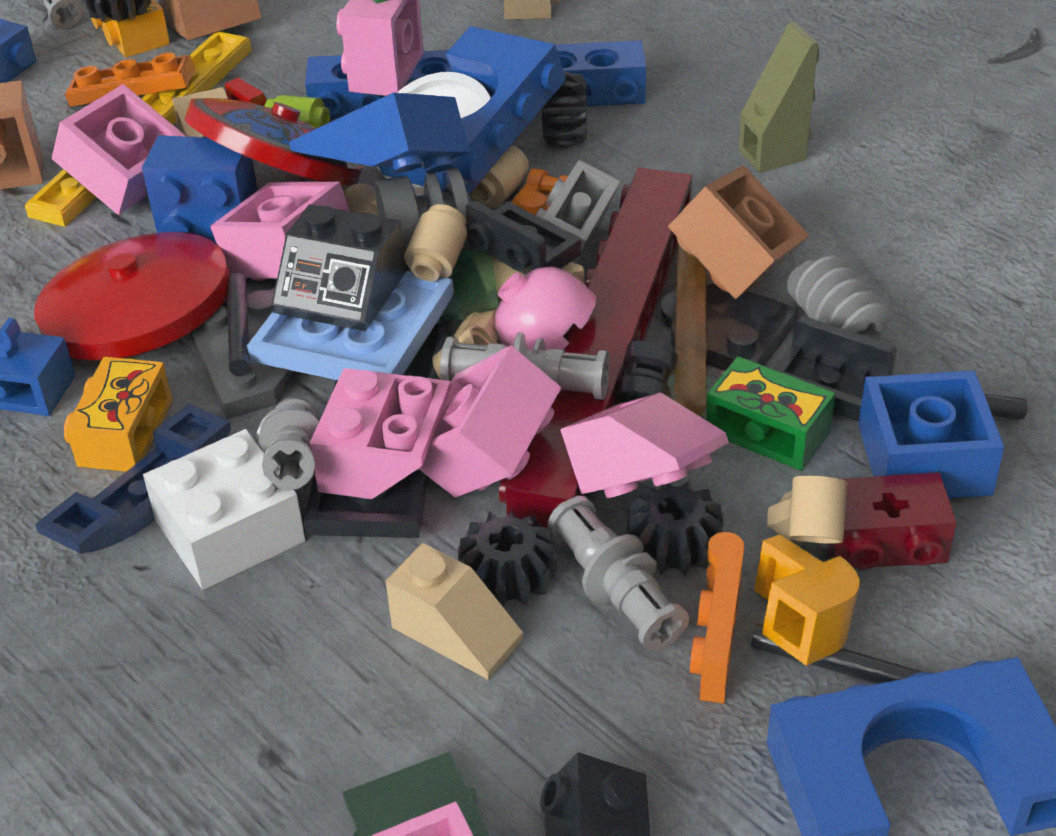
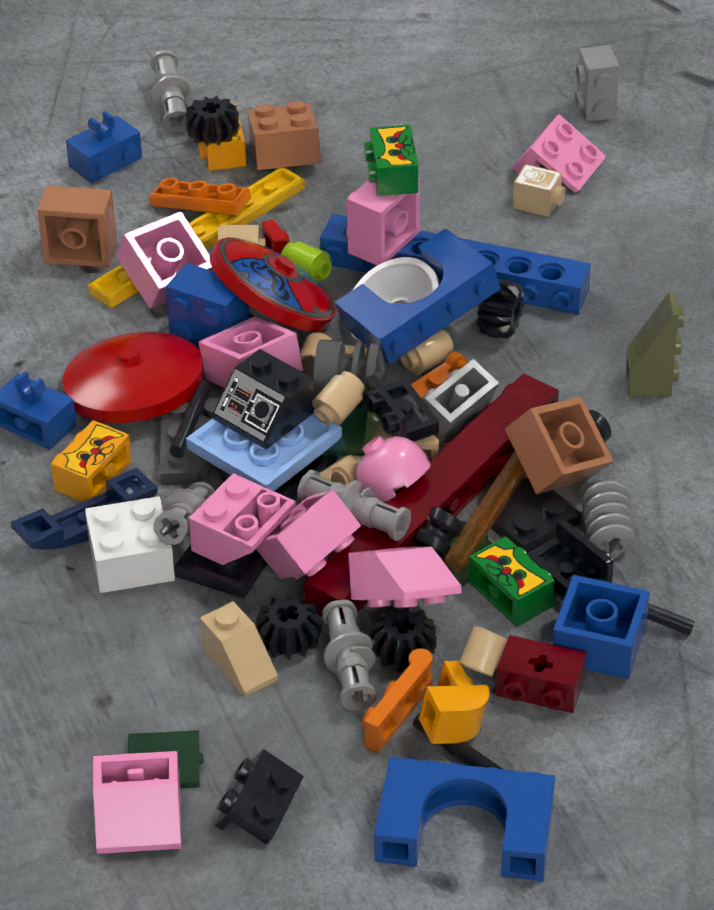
camera: 20 degrees right, 0 degrees up
(393, 132) = (341, 311): blue slope -> none

